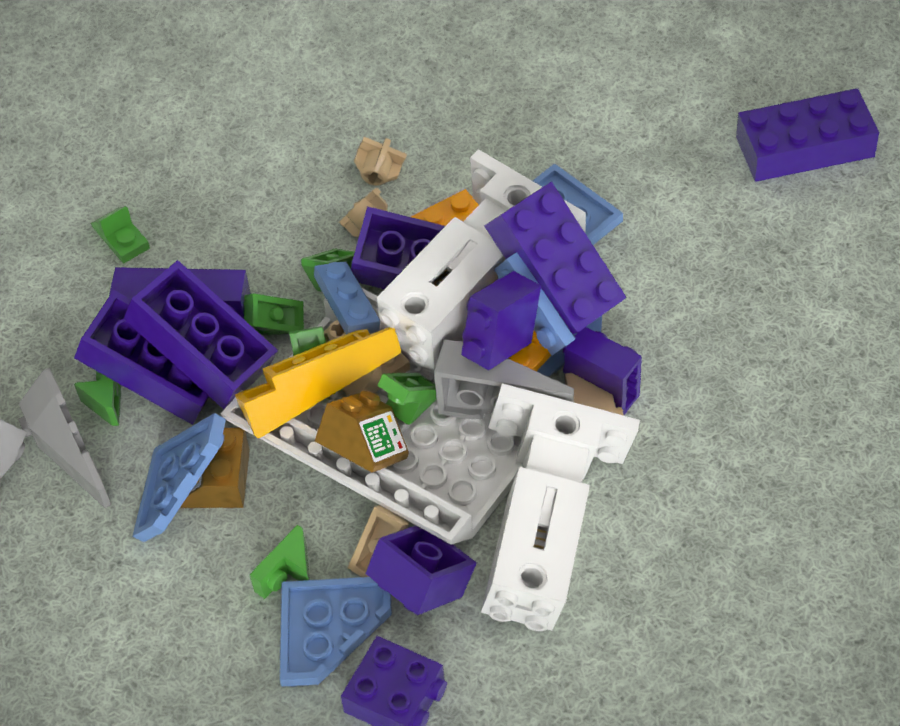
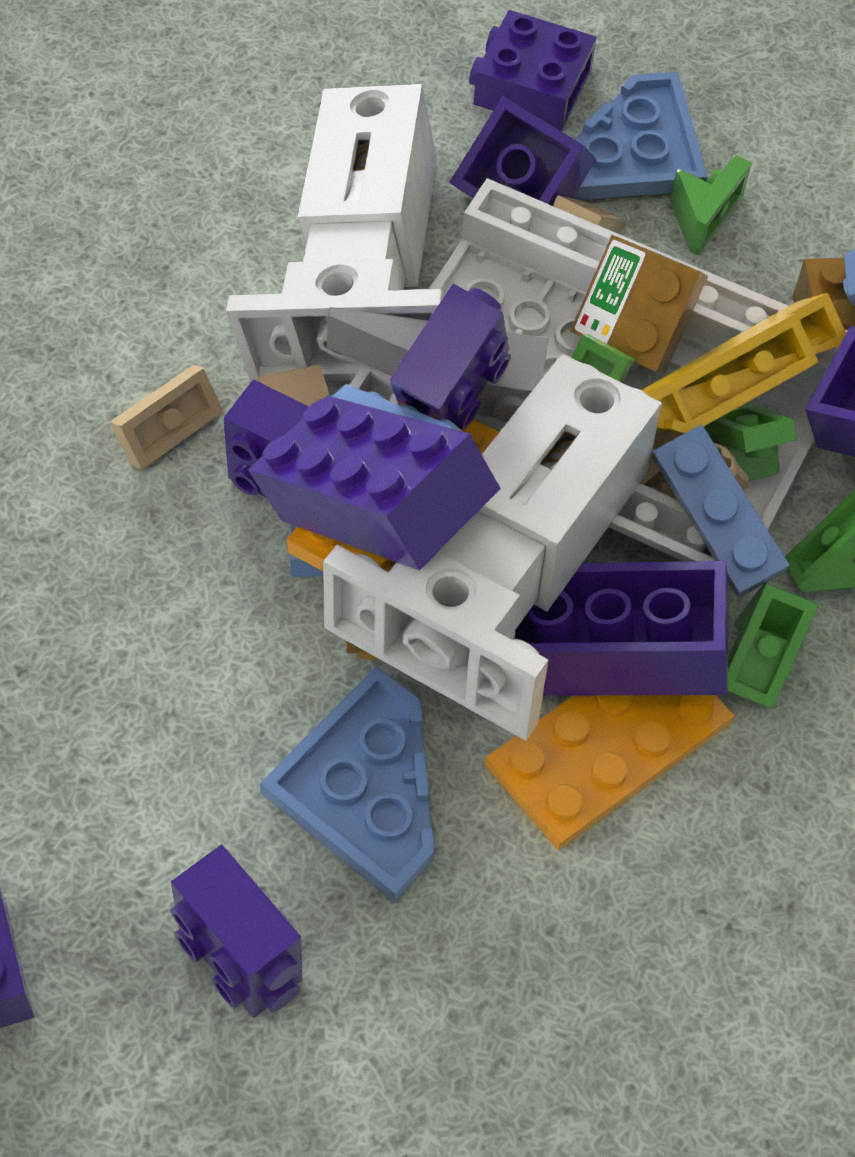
camera: 165 degrees right, 5 degrees up
(354, 218) = (733, 763): tan piece -> none
(378, 161) = (738, 888): tan piece -> none
(635, 137) = (237, 933): none -> dark purple brick
(690, 411) = (166, 417): none -> tan plate

